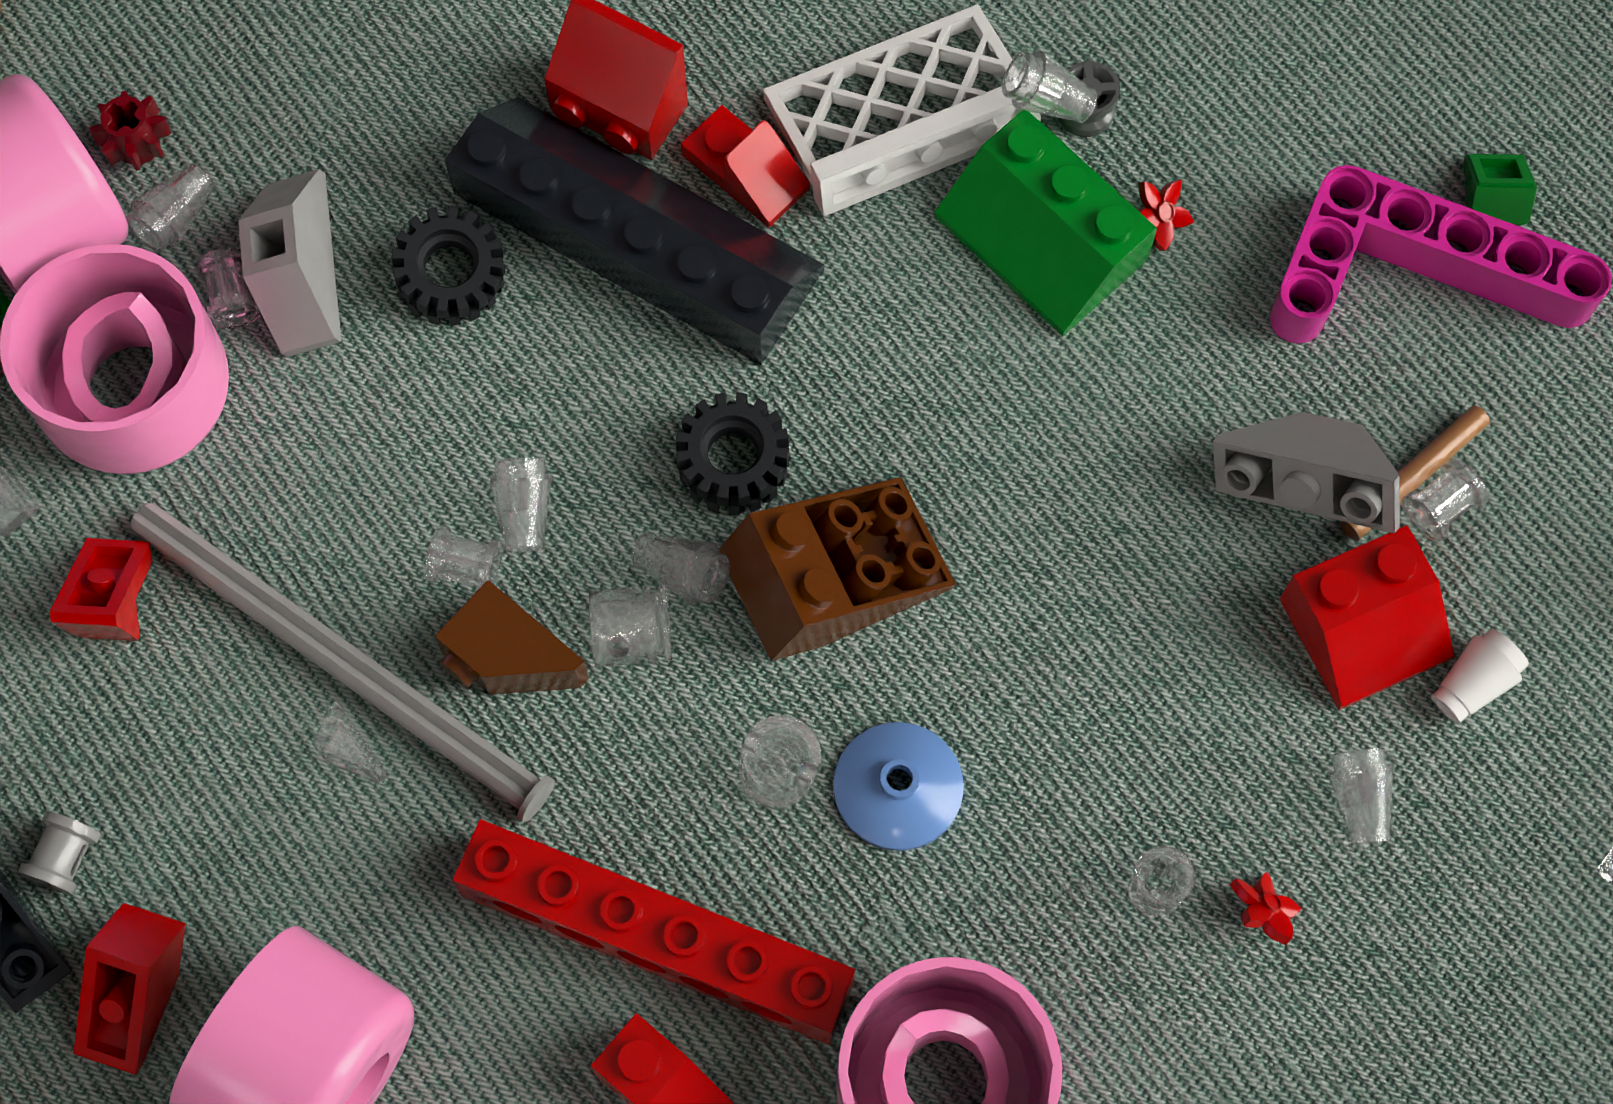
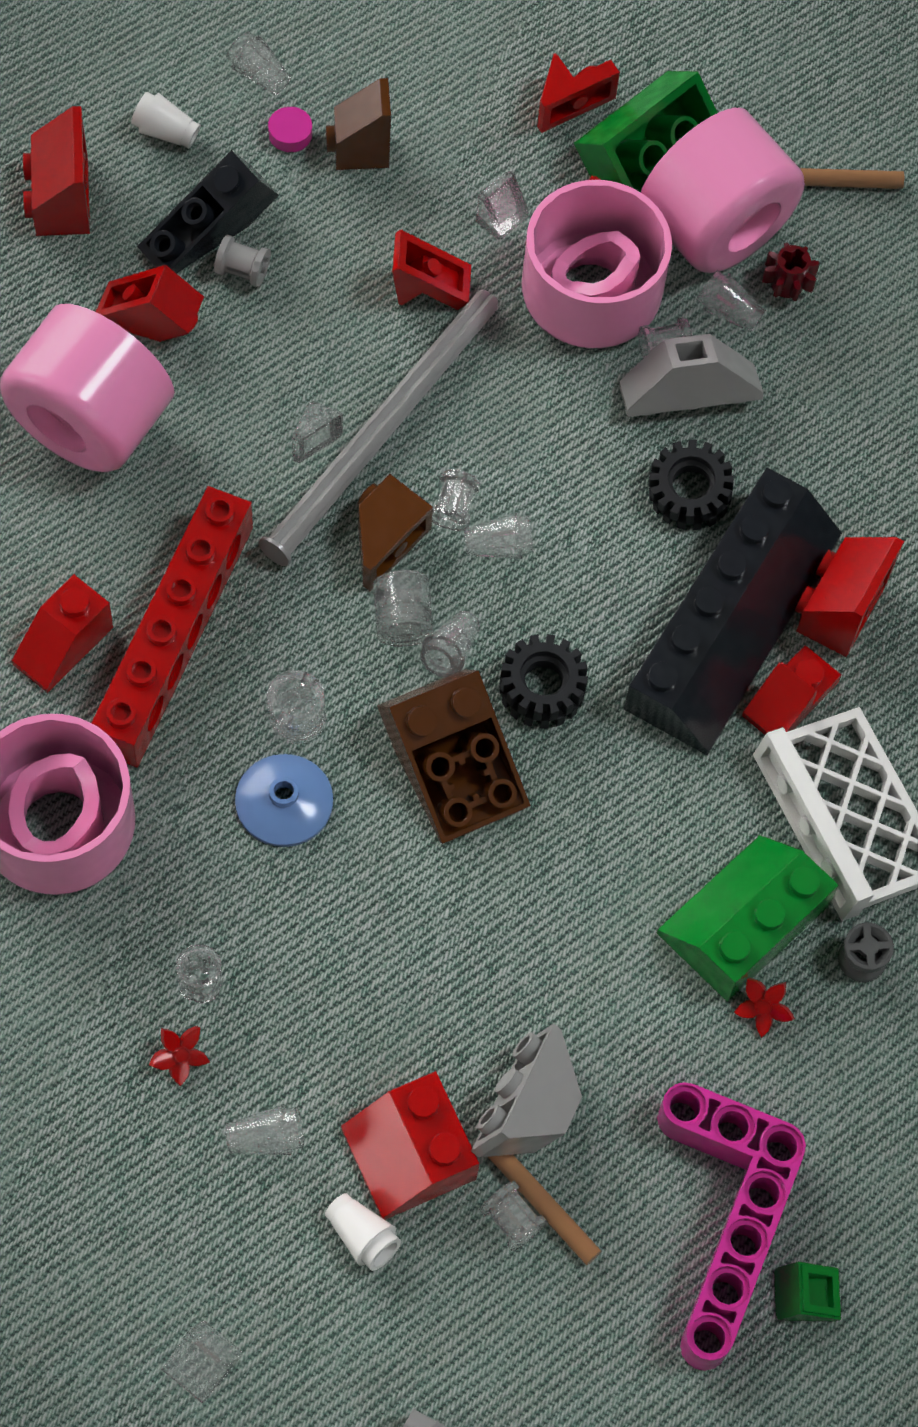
camera: 85 degrees right, 5 degrees down
(1047, 88) = (853, 898): clear cone -> none

